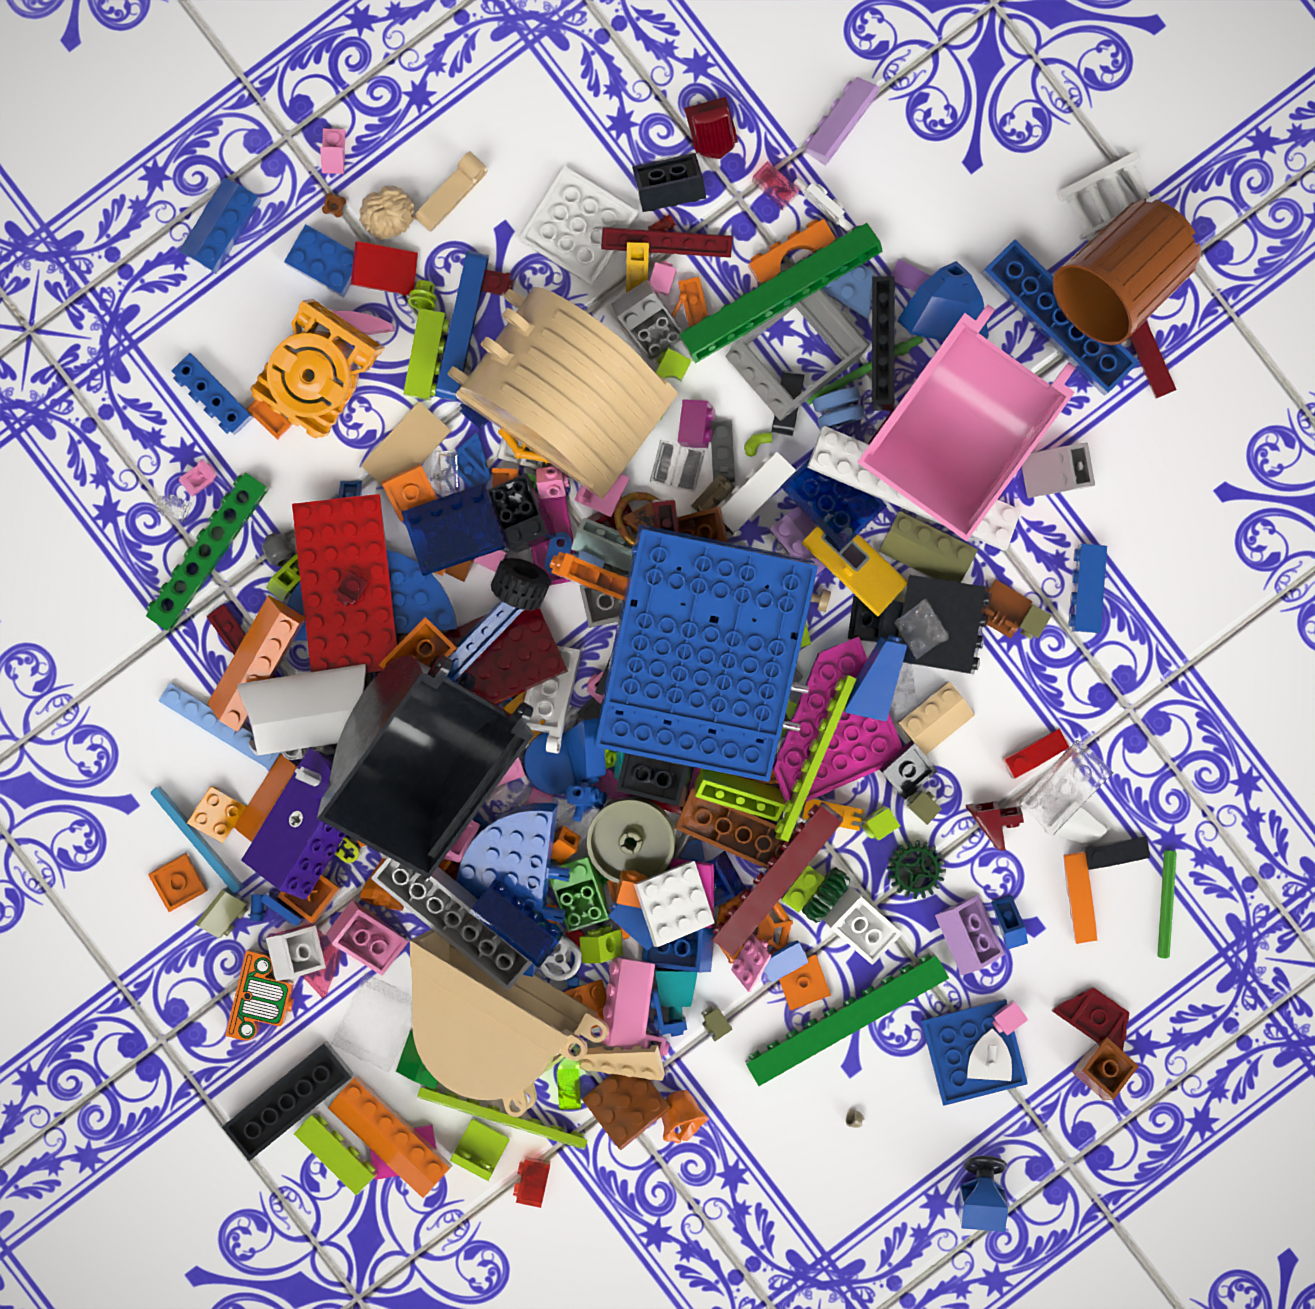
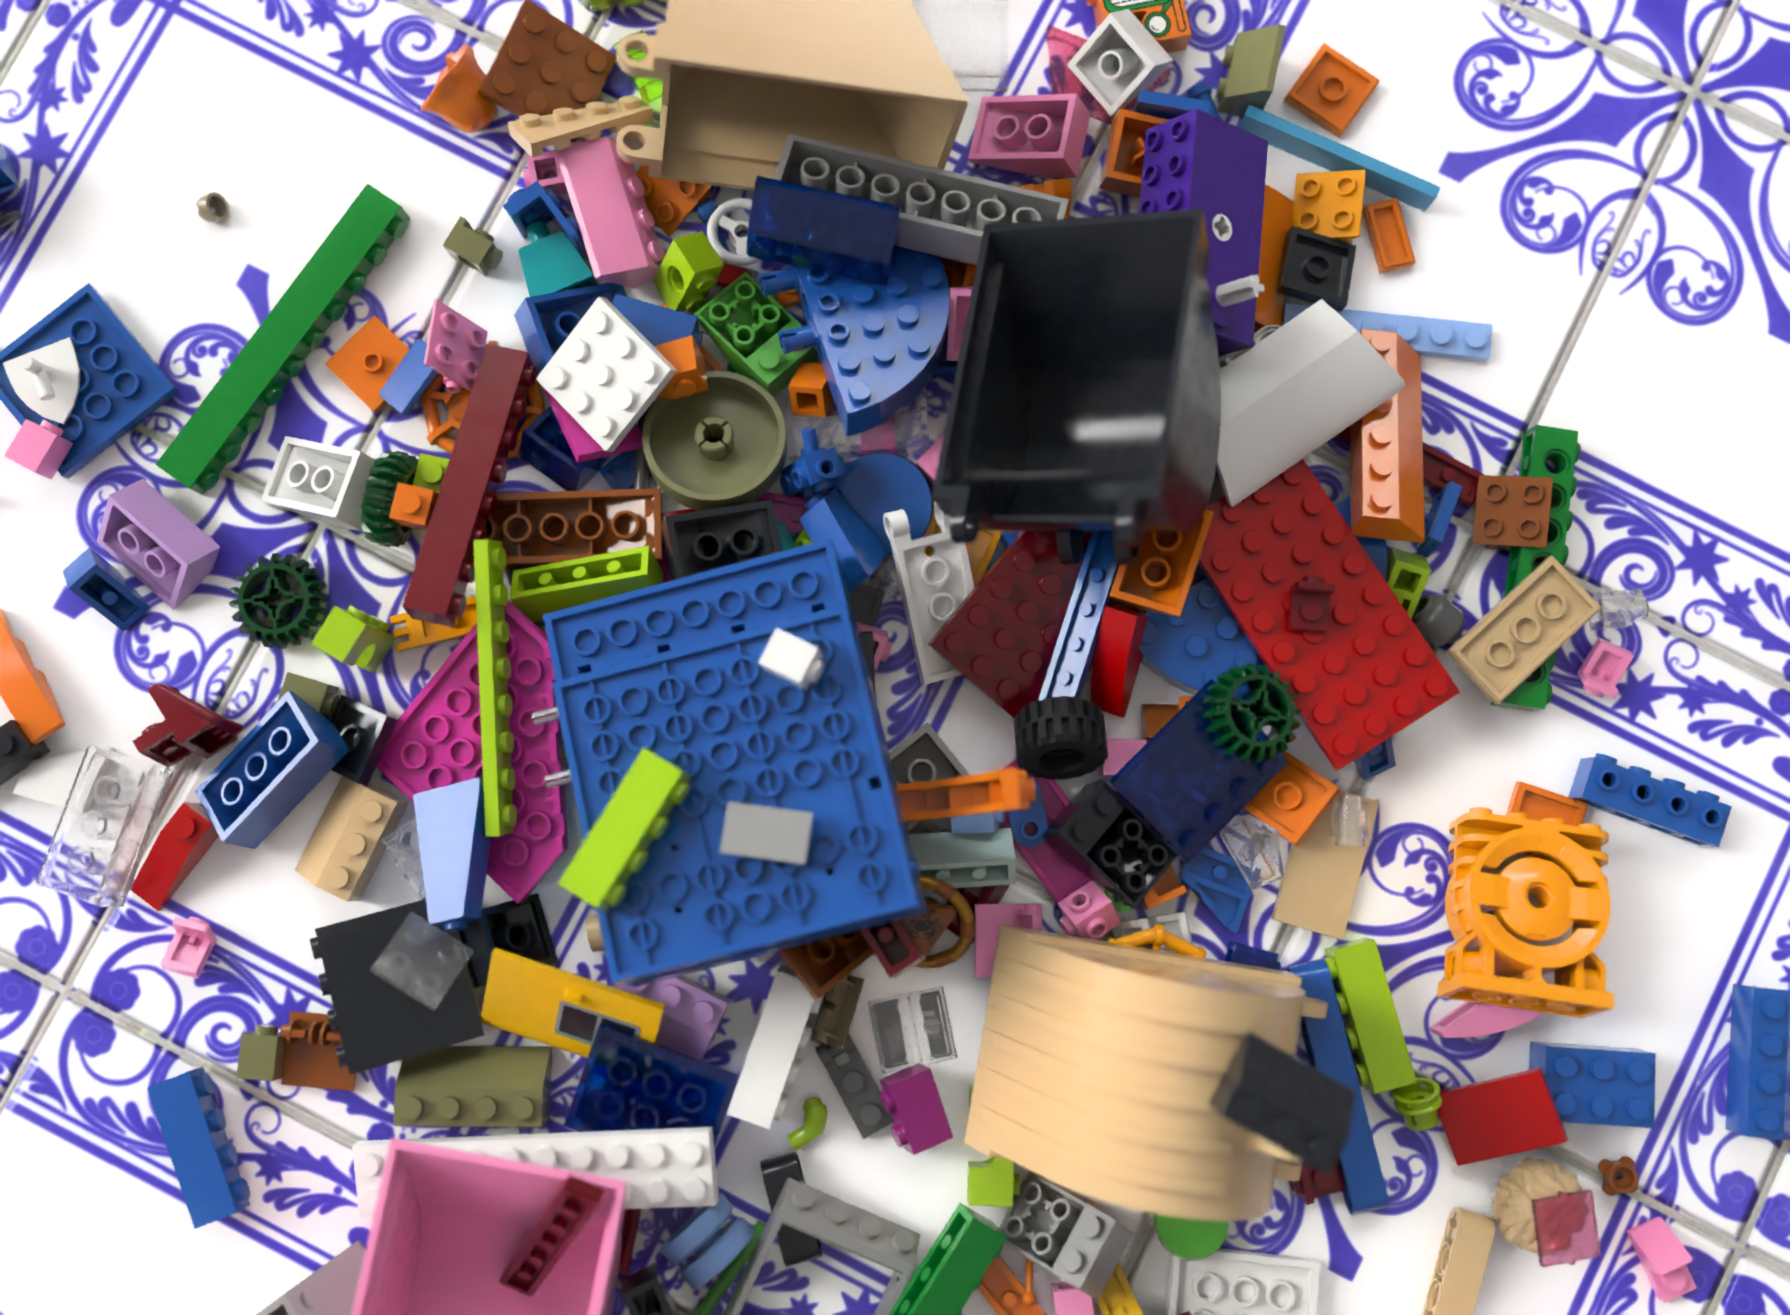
camera: 155 degrees right, 5 degrees down
(189, 781) = (1388, 235): none -> orange tile
(205, 589) = (1512, 511): none -> dark orange hinge
(235, 520) = (1523, 630): none -> tan tile
(242, 780) = (1316, 268): none -> black plate
(248, 604) = (1439, 518): none -> blue tile
(382, 198) = (1566, 1228): none -> clear pink piece
(384, 463) = (1350, 821): none -> clear brick
(398, 559) = (1266, 702): none -> dark green gear
(467, 612) = (1117, 659): none -> red slope
(505, 343) = (1286, 1103): none -> black slope
(579, 289) = (1190, 1237): none -> bright green tile
(646, 687) = (792, 659): none -> white brick
(701, 603) = (766, 833): none -> light grey piece
(774, 640) = (625, 831): none -> lime brick
(812, 878) = (413, 506): none -> orange brick
(914, 451) = (551, 1235): none -> dark red tile
(960, 773) = (270, 771): none -> blue slope
(1049, 699) = (189, 947): none -> bright pink bracket

